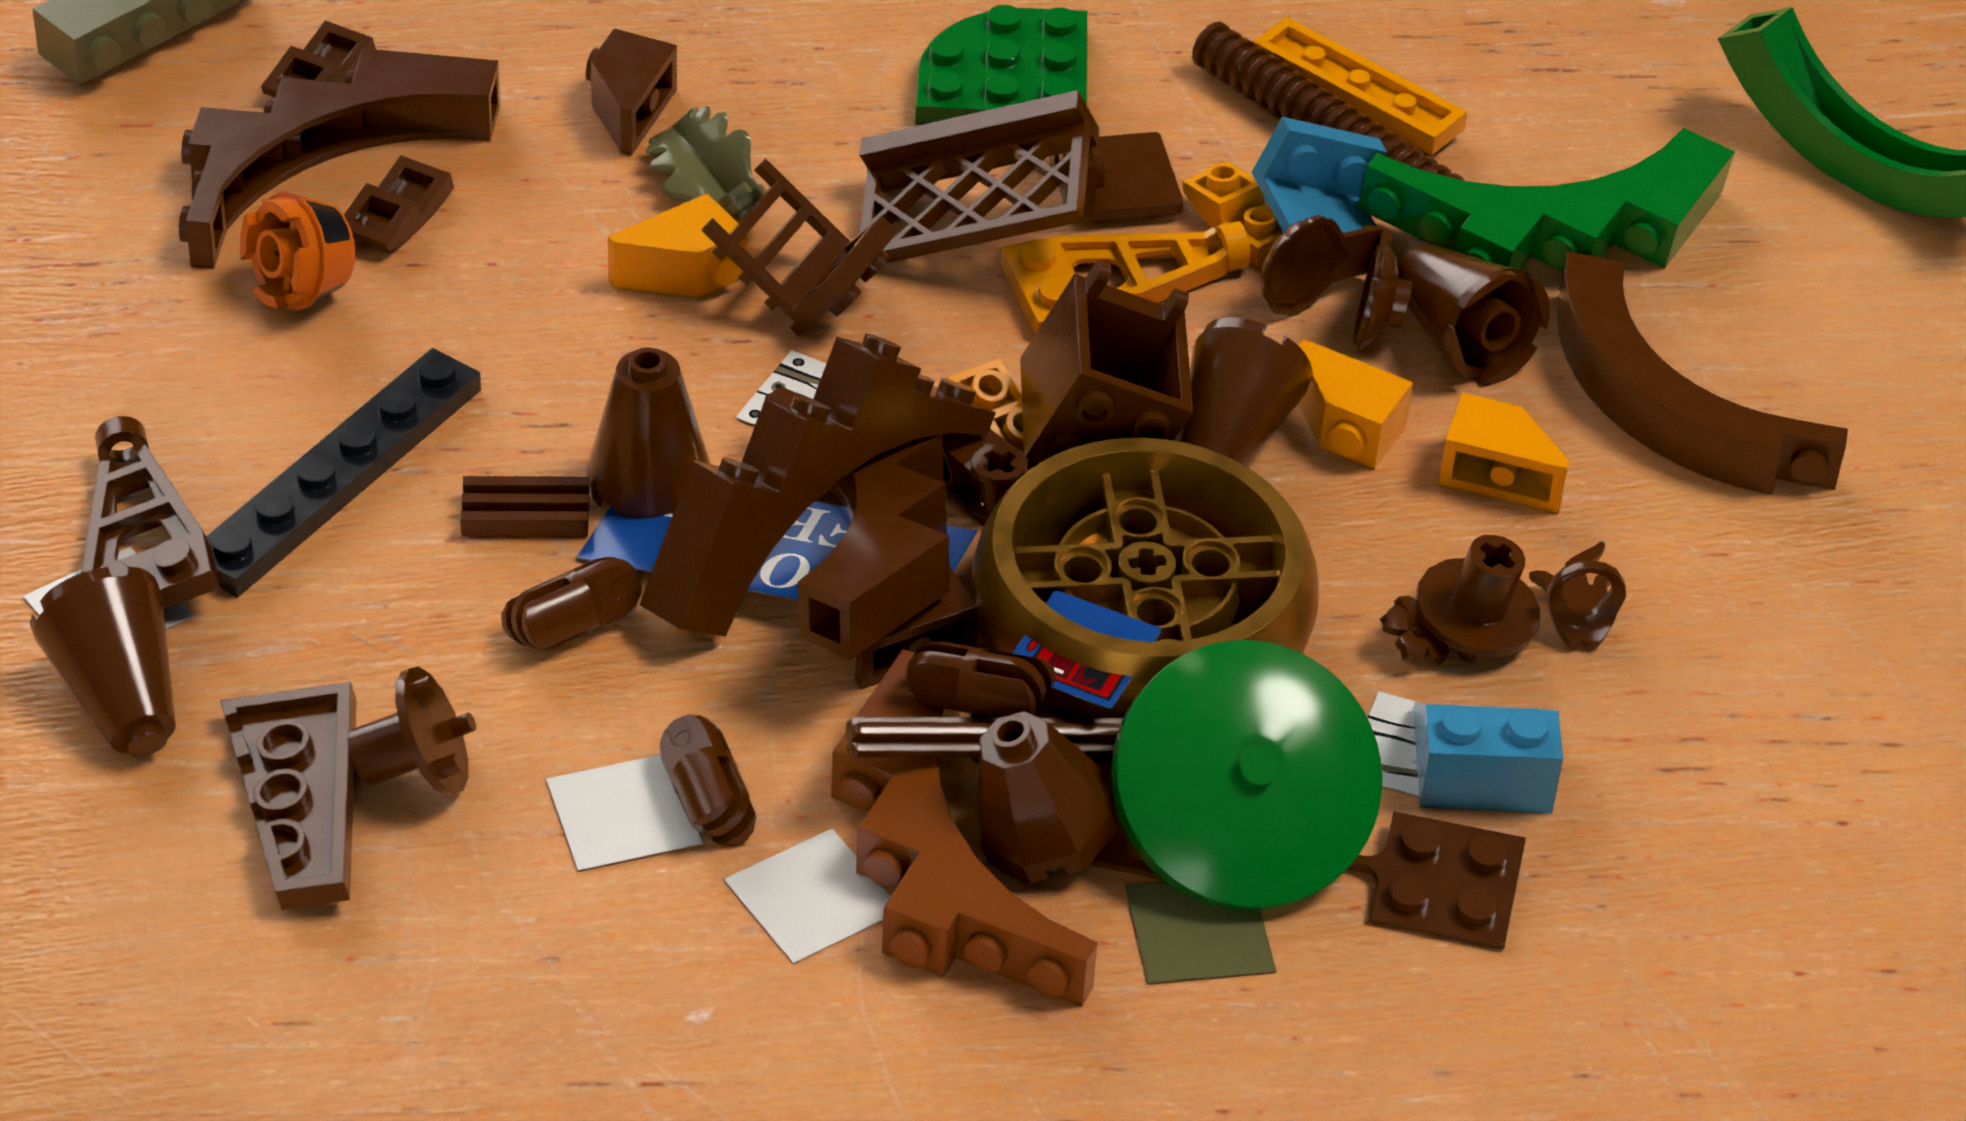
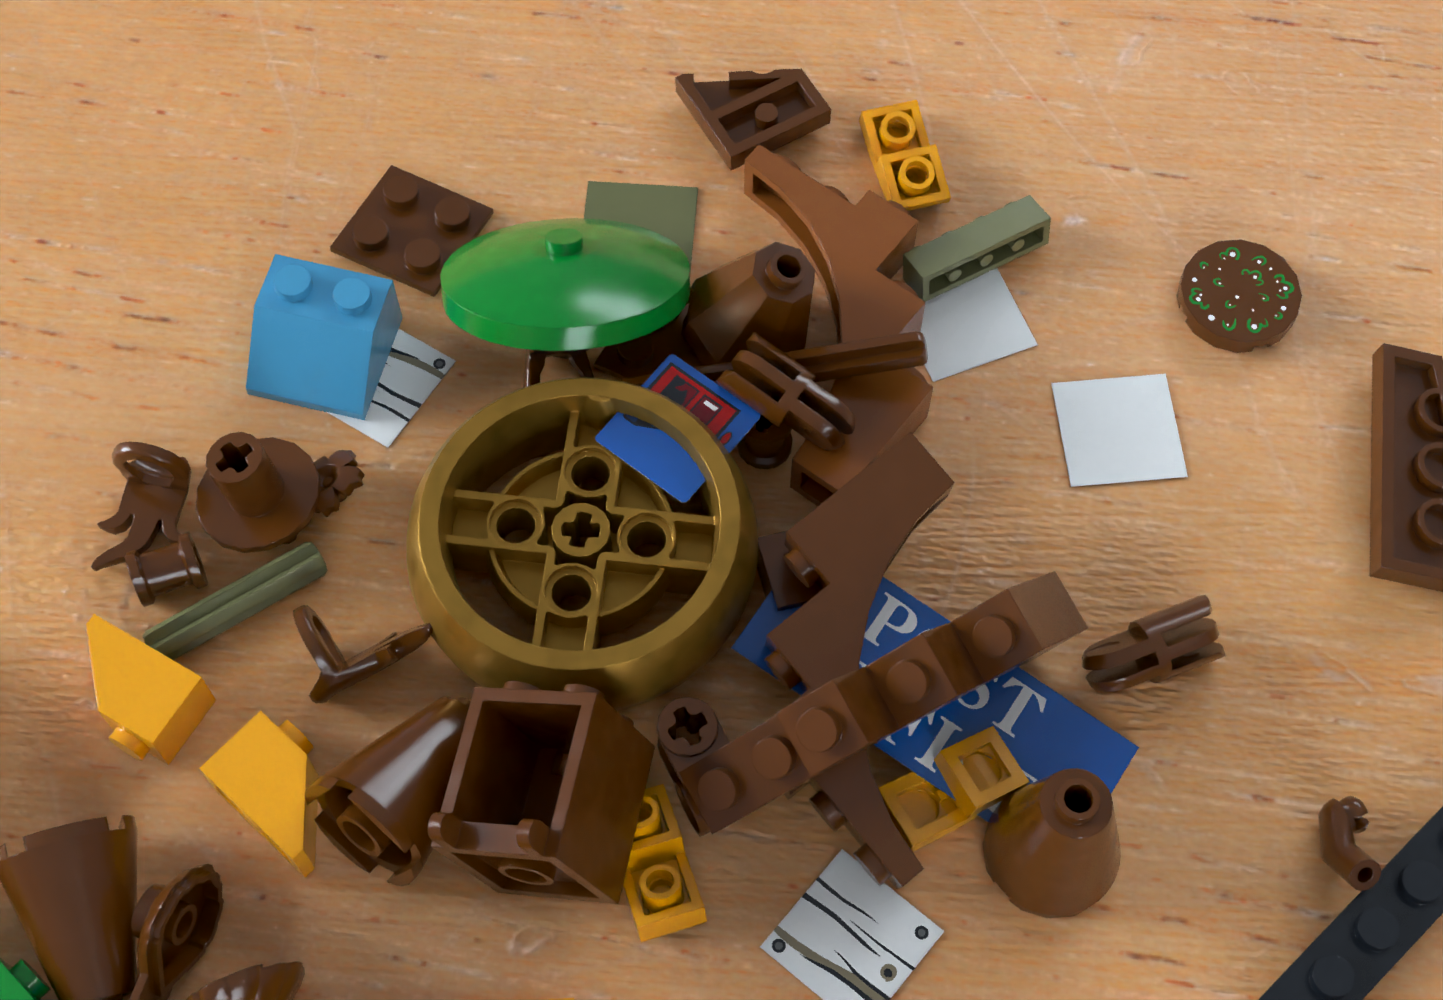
camera: 165 degrees left, 20 degrees up
(386, 489) = (1338, 847): none -> reddish brown arm
(418, 736) = (1316, 481): reddish brown piece -> none
(502, 945) = (1239, 295): none -> reddish brown tile
(525, 506) = (1192, 792): reddish brown tile -> none
(707, 780) = (1047, 417): reddish brown arm -> none
(809, 939) = (976, 248): none -> olive piece
(913, 1035) = (902, 156): none -> light orange slope
(1109, 1049) = (754, 110): none -> reddish brown wing
(1327, 500) = (340, 674): none -> reddish brown piece
(1456, 535) = (237, 601): none -> olive axle
(1540, 537) = (166, 569): none -> reddish brown bush

